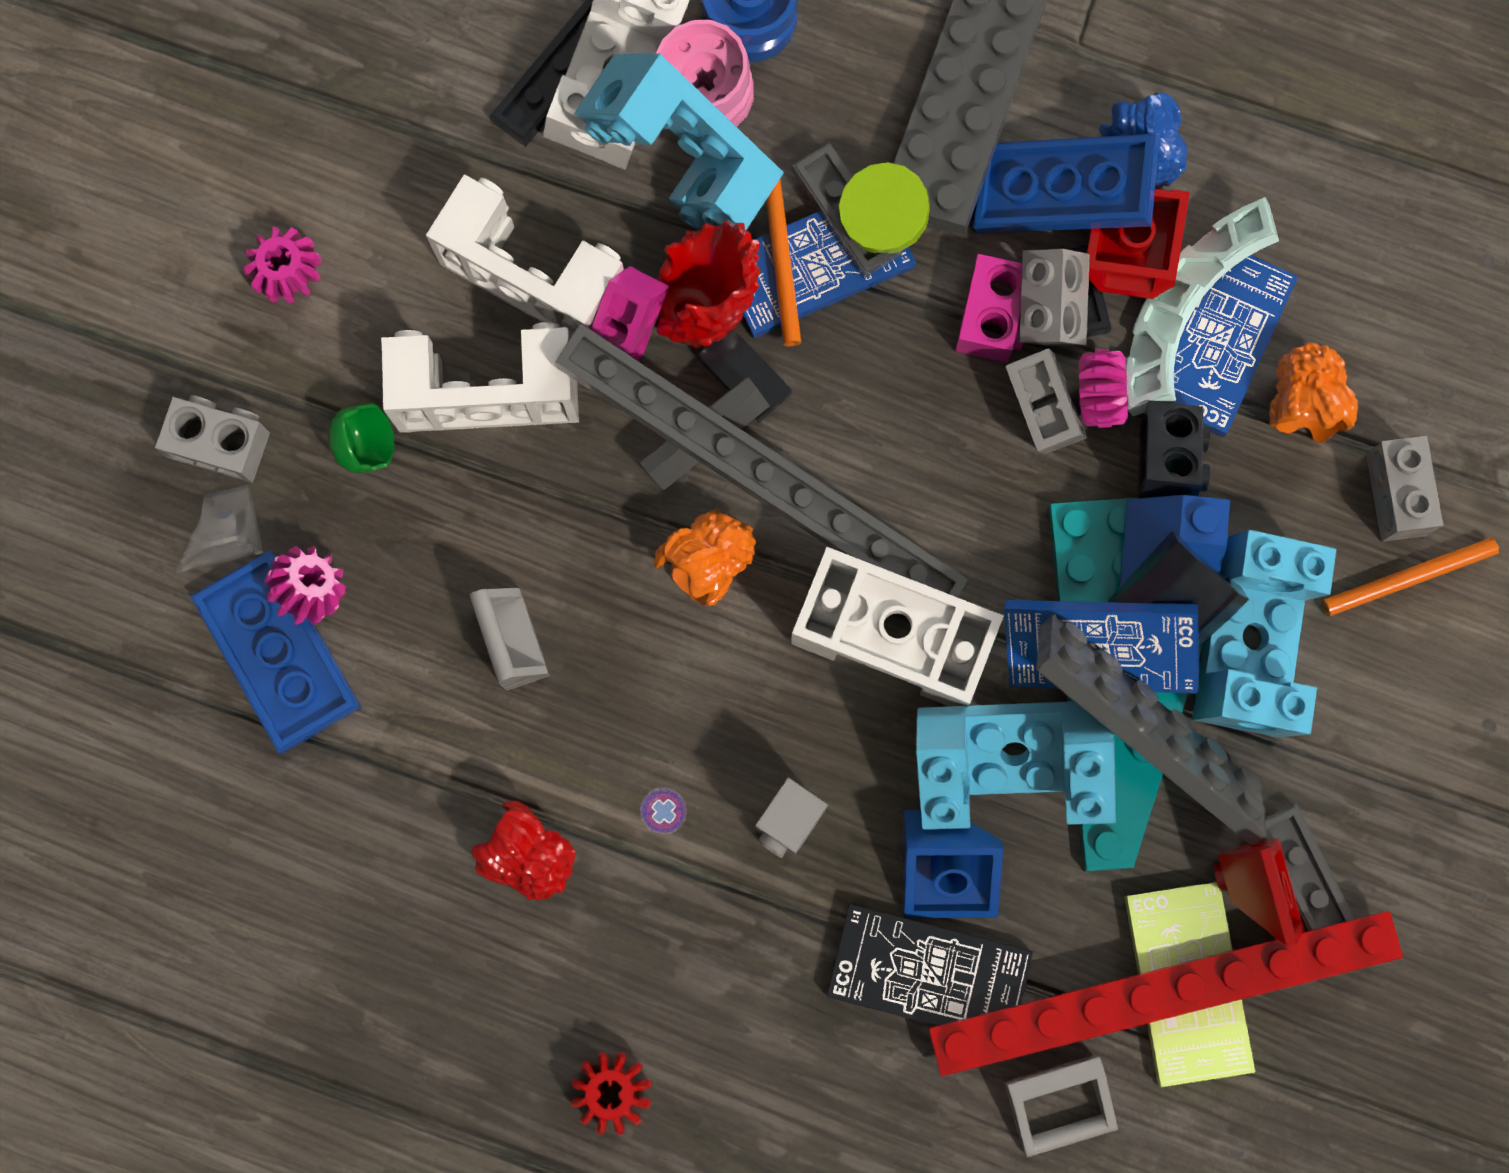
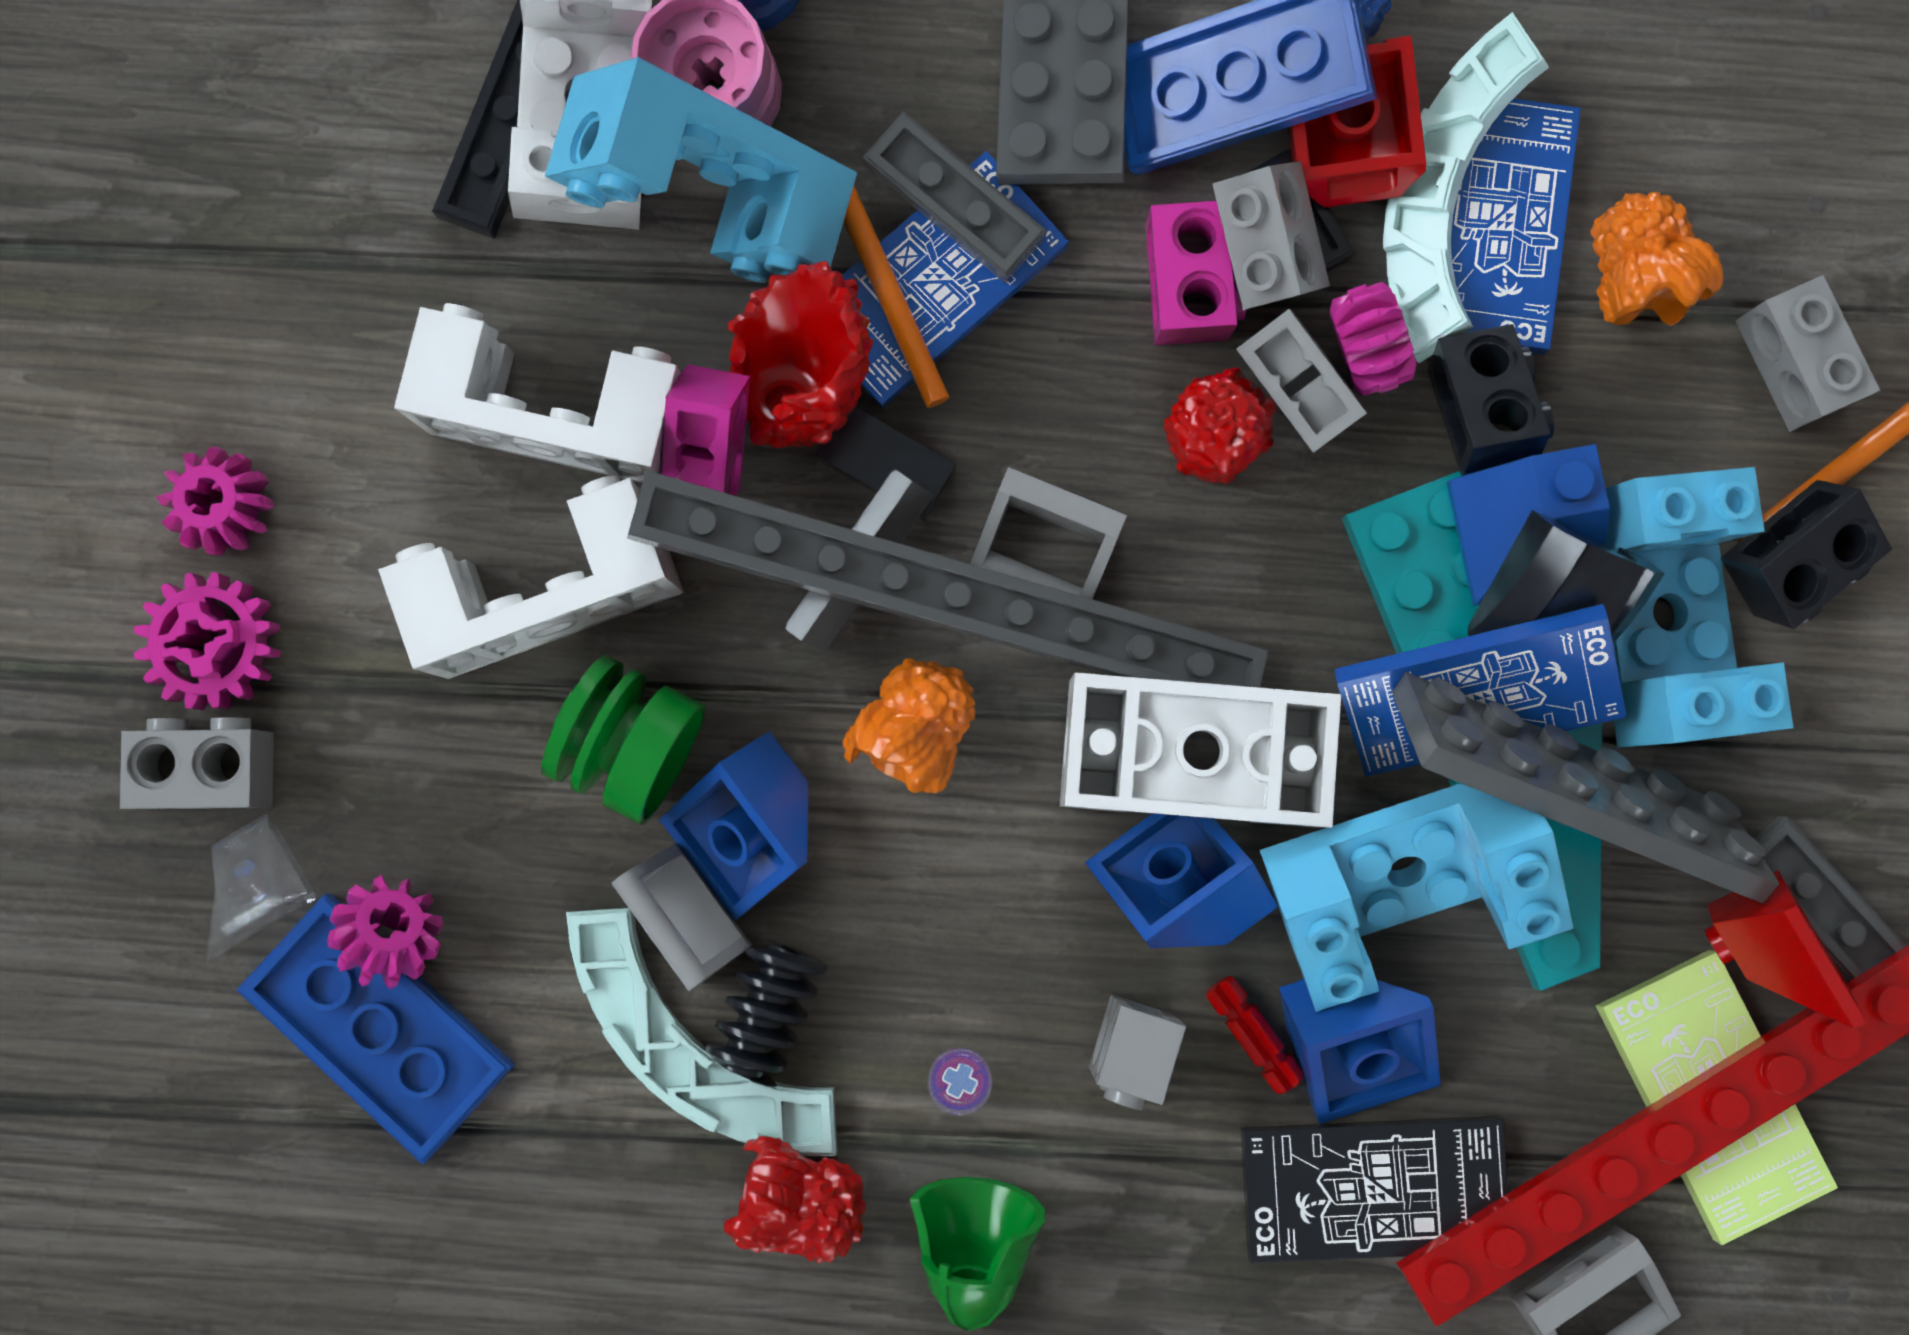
camera: 15 degrees left, 5 degrees up
(234, 341) = (187, 621): none -> dark pink gear
(361, 438) = (397, 708): green hair -> none
(468, 733) = (671, 1059): none -> light aqua tile
(503, 499) = (611, 733): none -> green wheel
(545, 718) = (765, 1011): none -> black piece
(570, 587) = (745, 824): none -> blue slope
(637, 923) = (975, 1244): none -> green helmet
(853, 440) = (1058, 508): none -> light grey tile
(860, 717) = (1182, 882): none -> blue slope
(878, 841) = (1255, 1035): none -> red axle
(884, 208) = (1007, 180): lime tile -> none
(980, 416) = (1219, 426): none -> red hair
(1361, 614) = (1807, 553): none -> black brick

